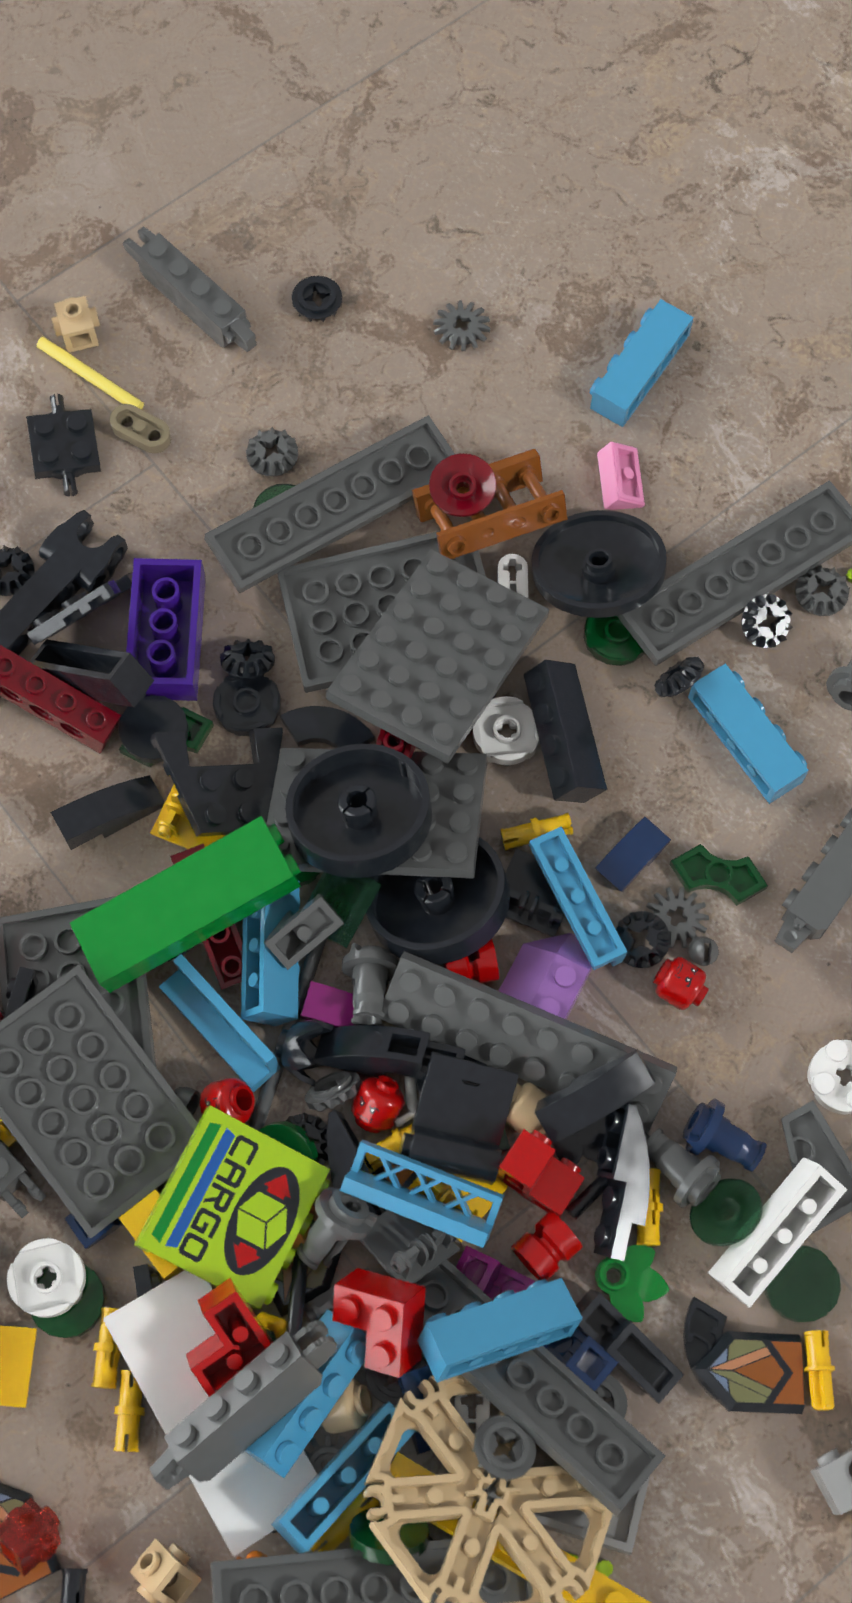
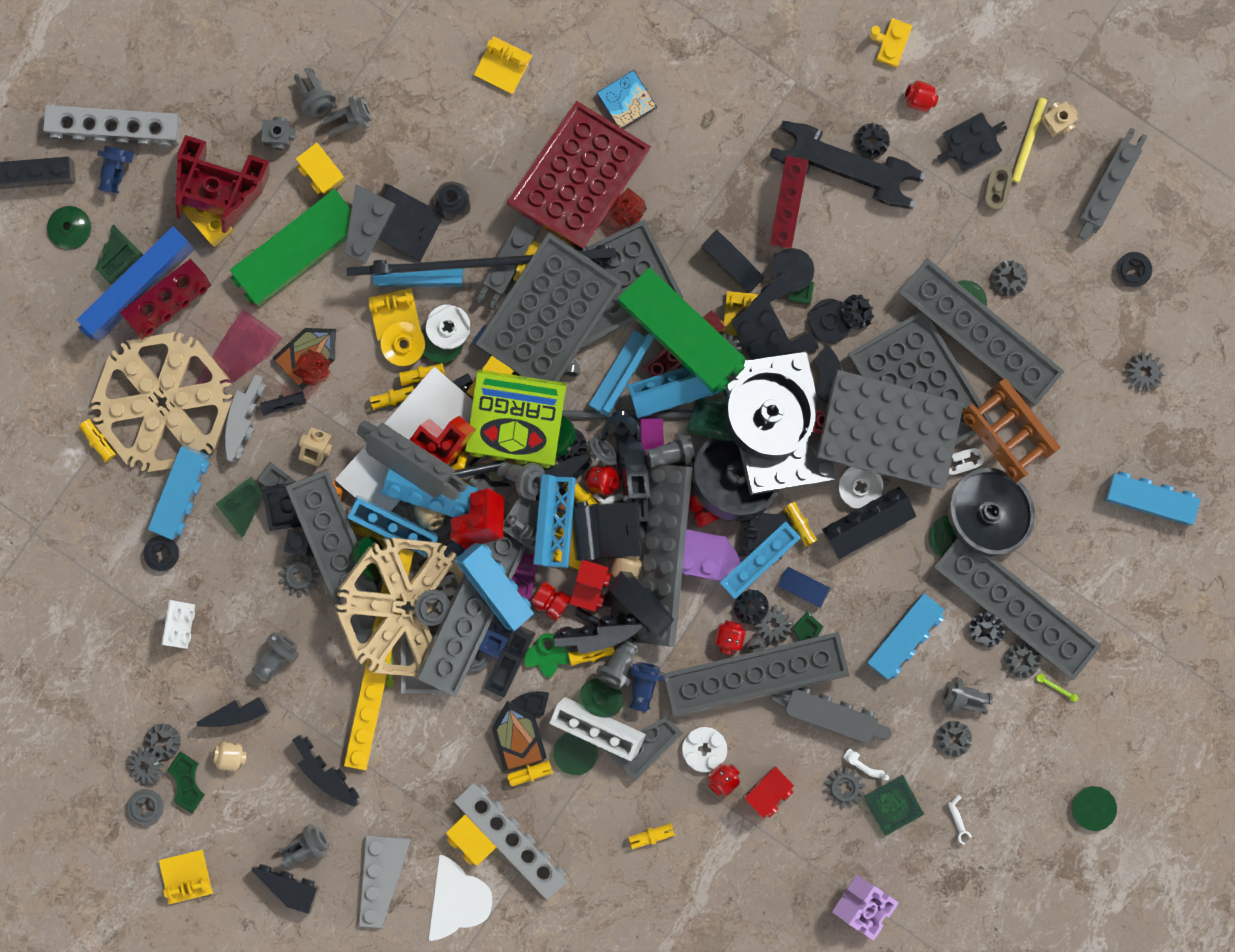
camera: 75 degrees right, 15 degrees up
(26, 1370) = (391, 343): none -> yellow dish
(77, 608) = (854, 199): black wing -> none
(95, 671) = (810, 221): black brick -> none
(167, 624) = (859, 254): dark purple brick -> none
(229, 1096) = (577, 394): red head -> none
(303, 931) = (687, 404): dark grey slope -> none
(458, 472) = (1015, 398): dark red dish -> none
(620, 477) = (1064, 509): bright pink slope -> none
(679, 677) = (928, 584): black gear -> none
(751, 962) = (756, 674): none -> dark grey plate

